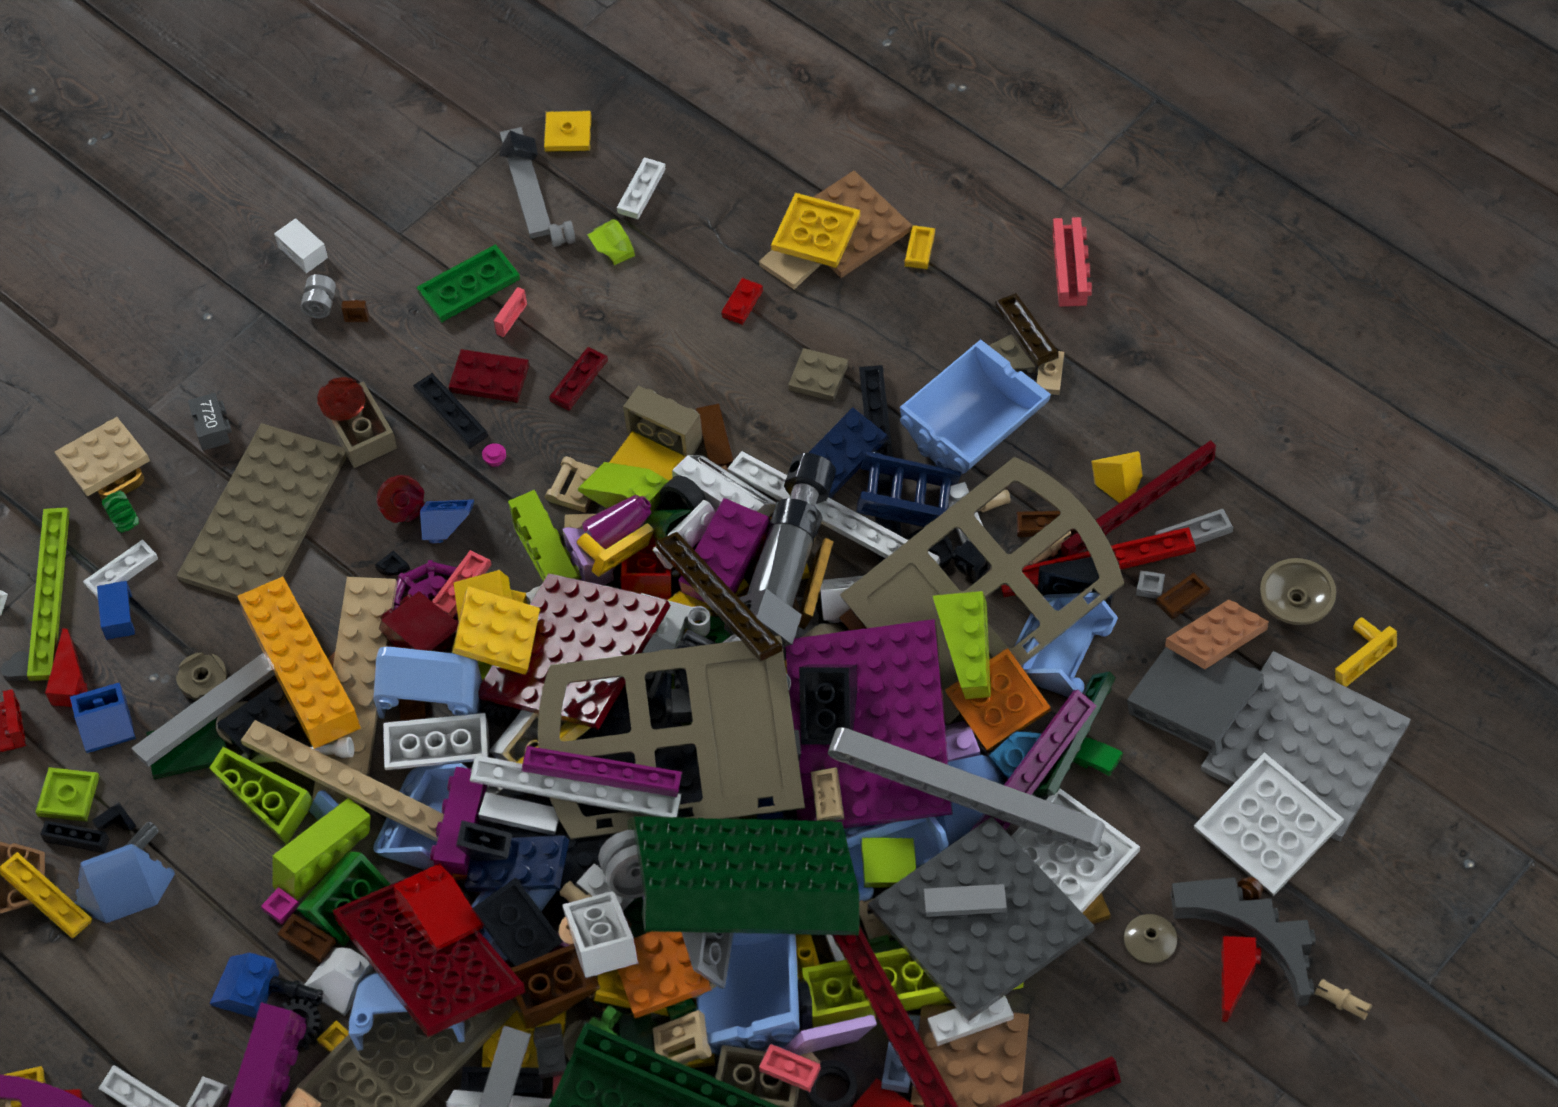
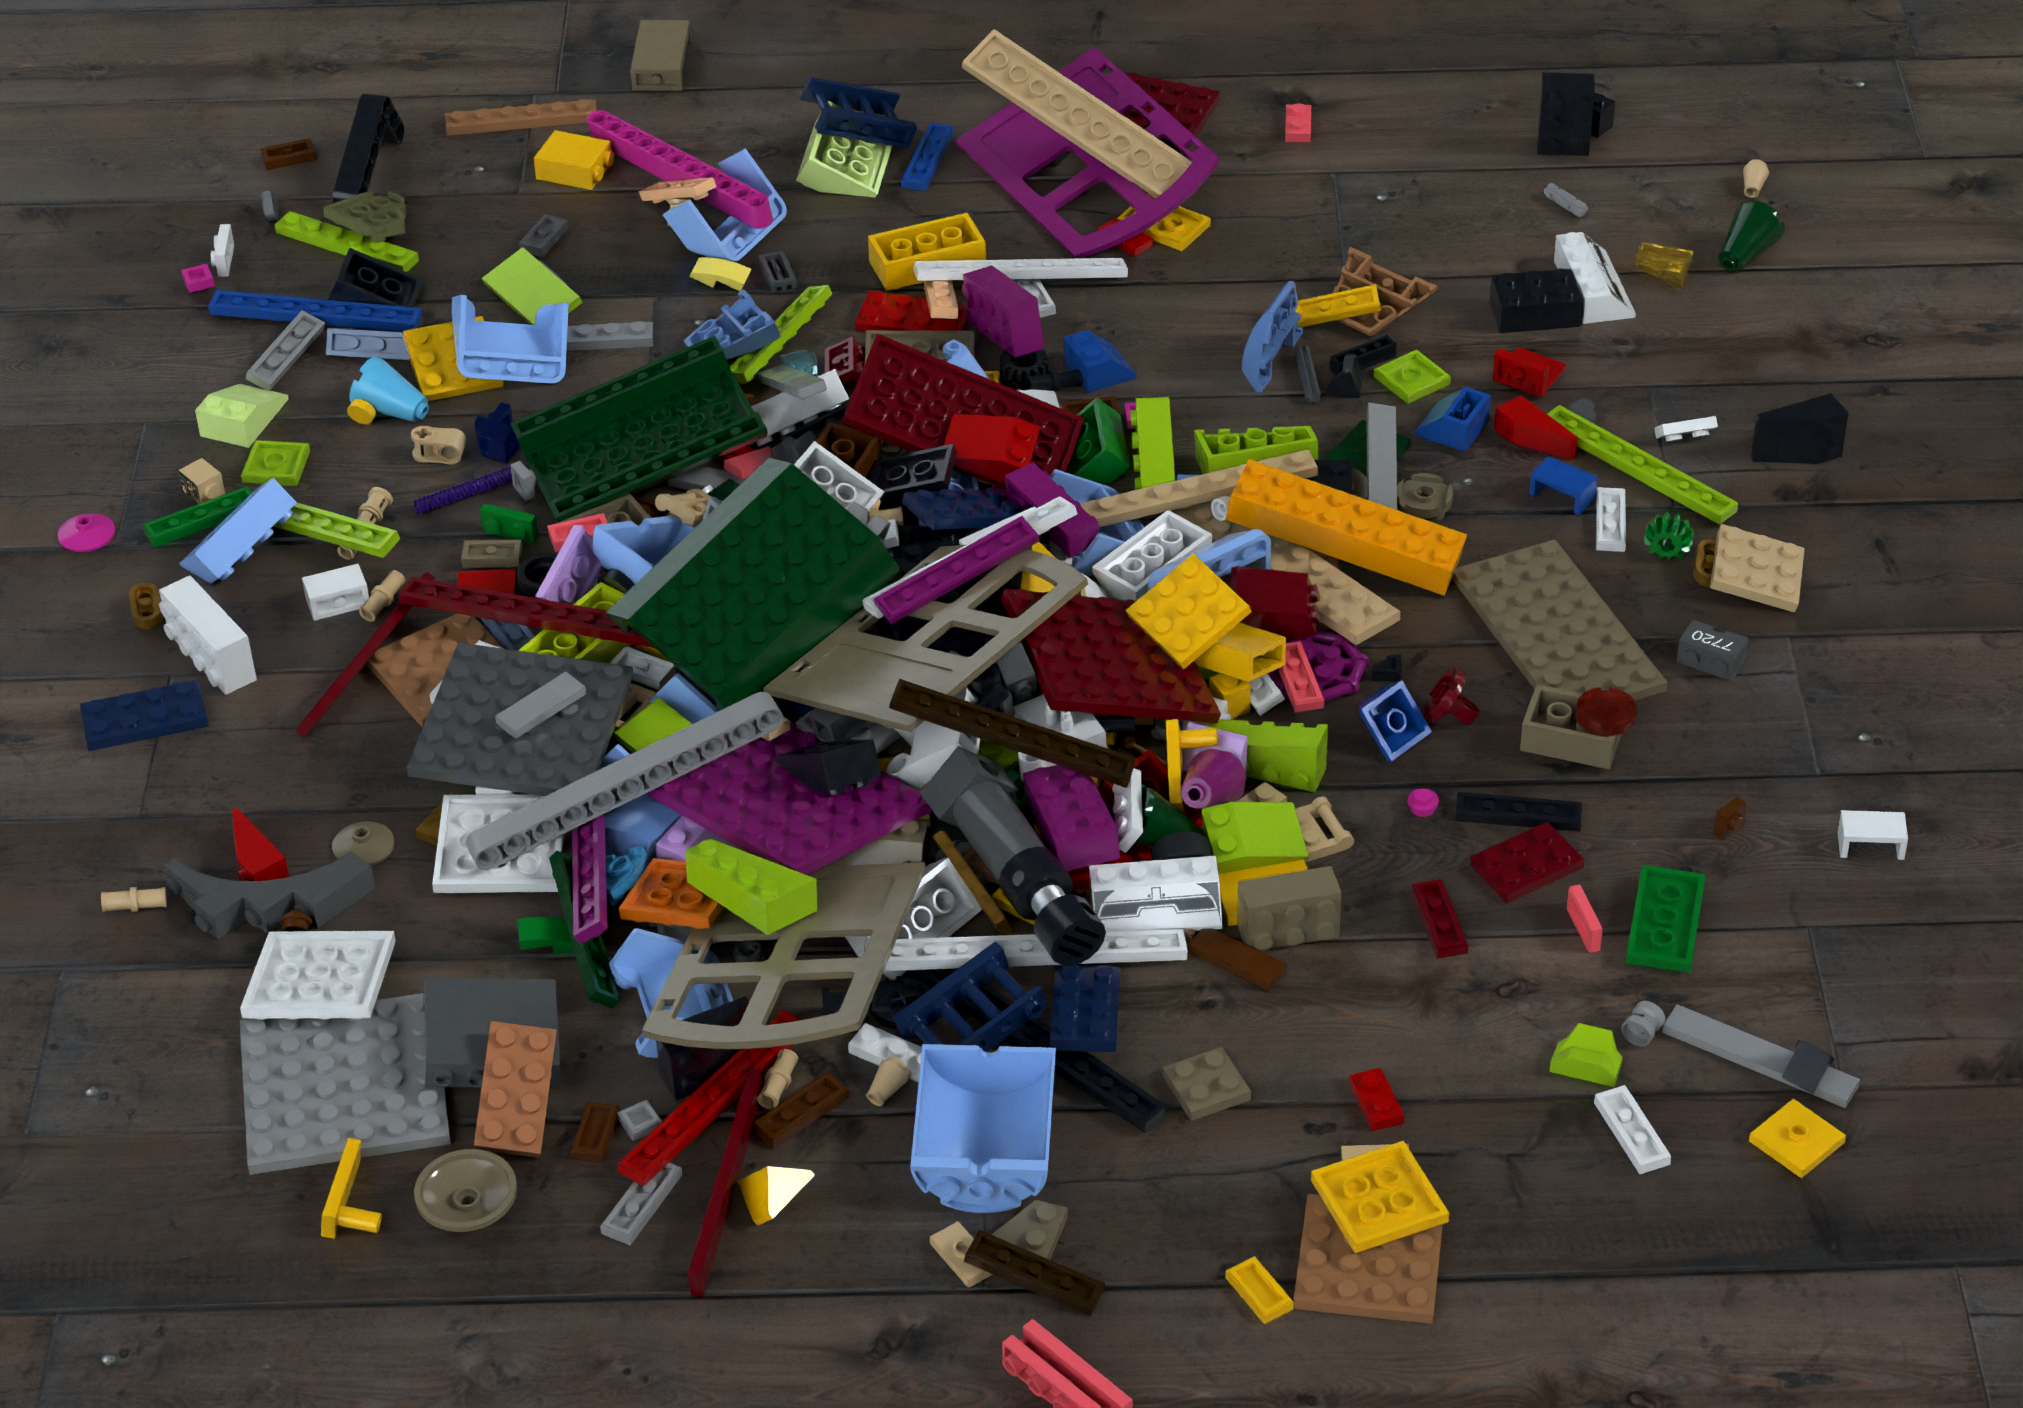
camera: 135 degrees right, 15 degrees down
(317, 296) = (1781, 802): light grey wheel -> none
(483, 842) = (1005, 489): black slope -> none

